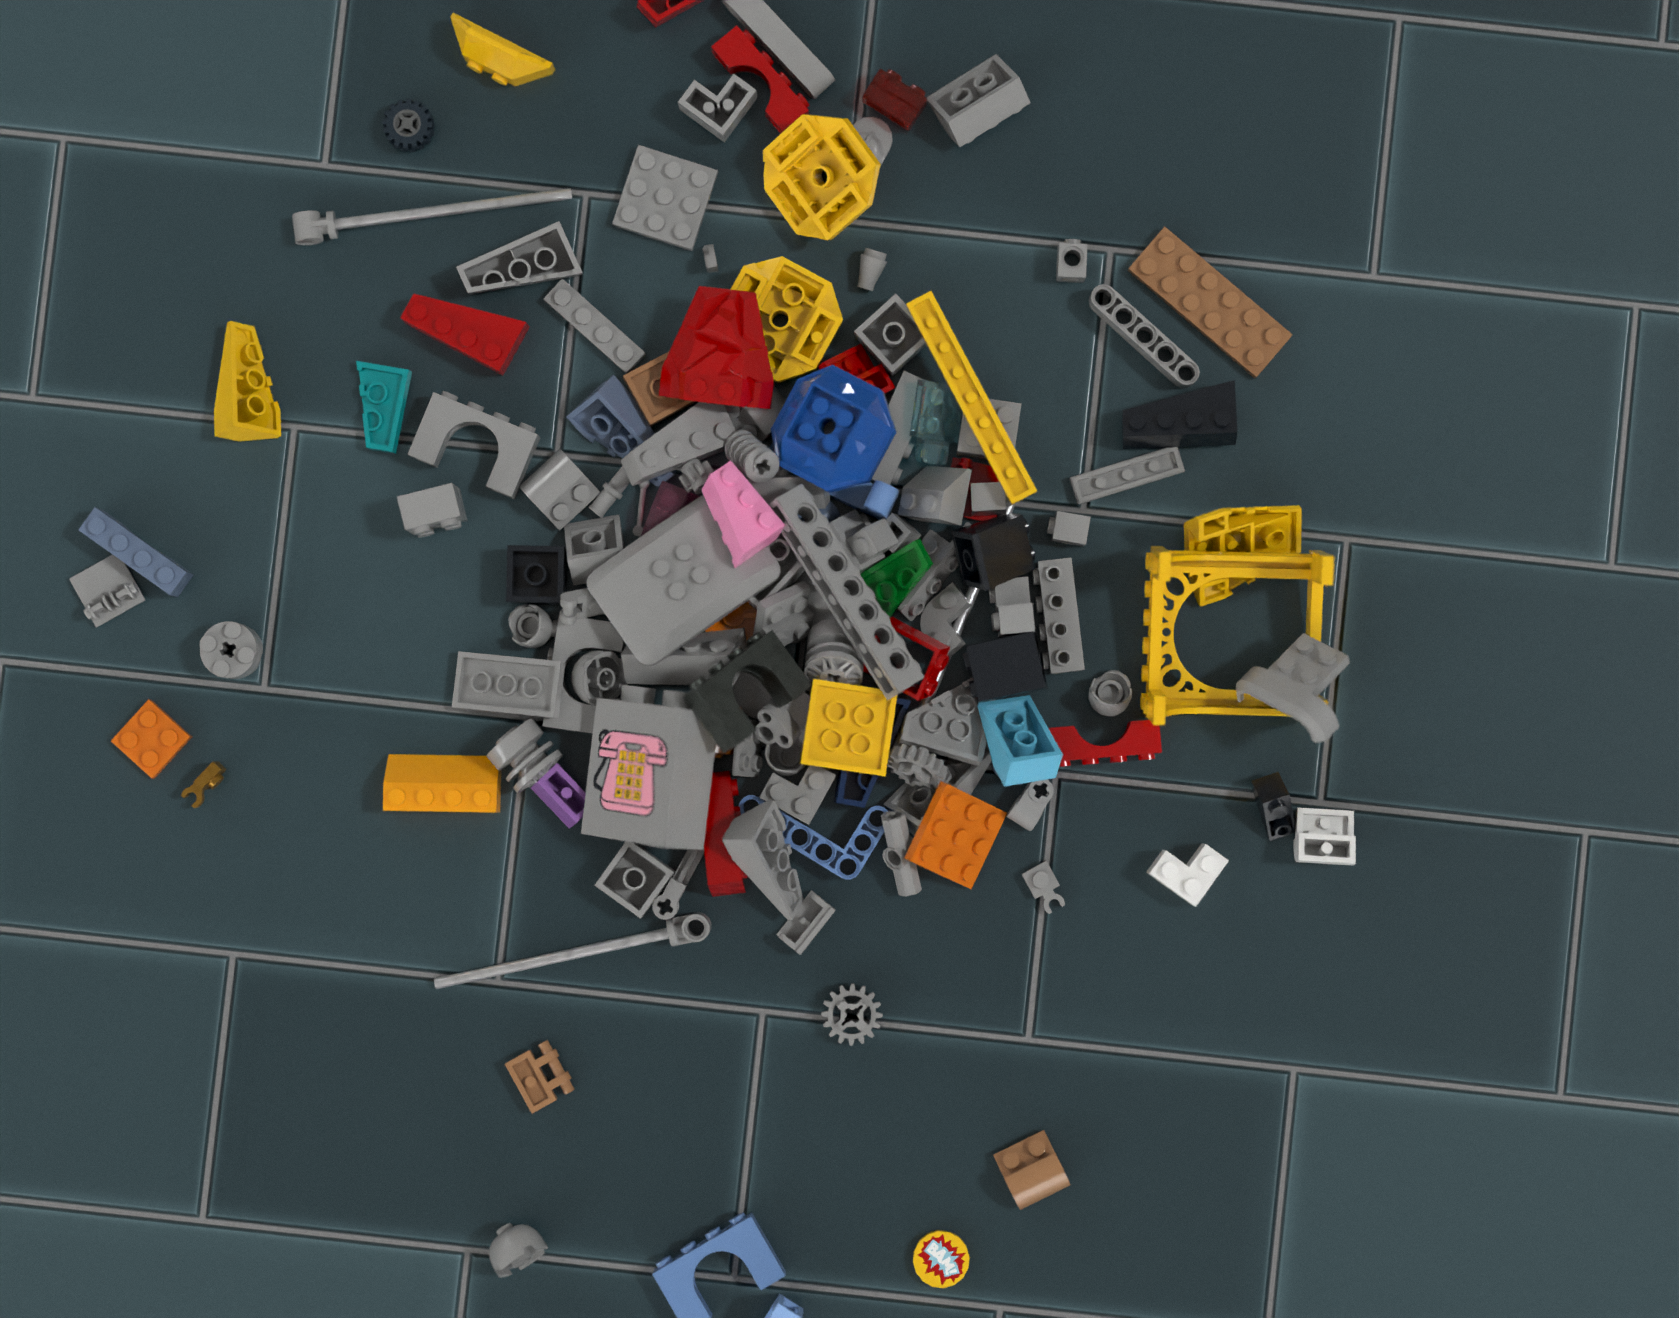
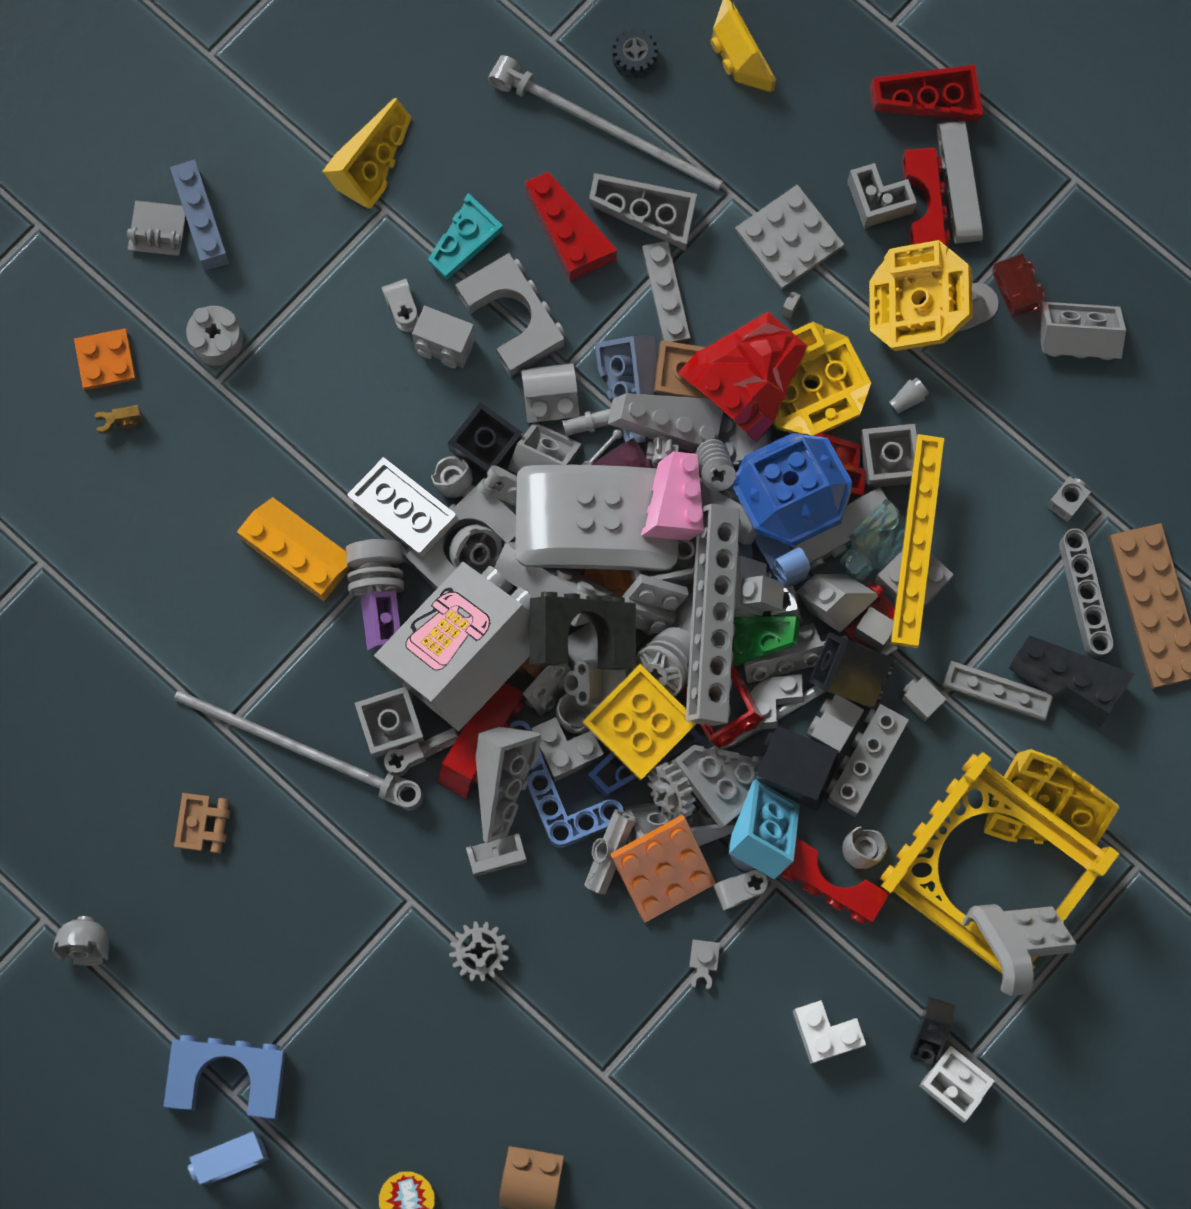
camera: 30 degrees right, 10 degrees down
(370, 501) = (401, 303): none -> light grey piece

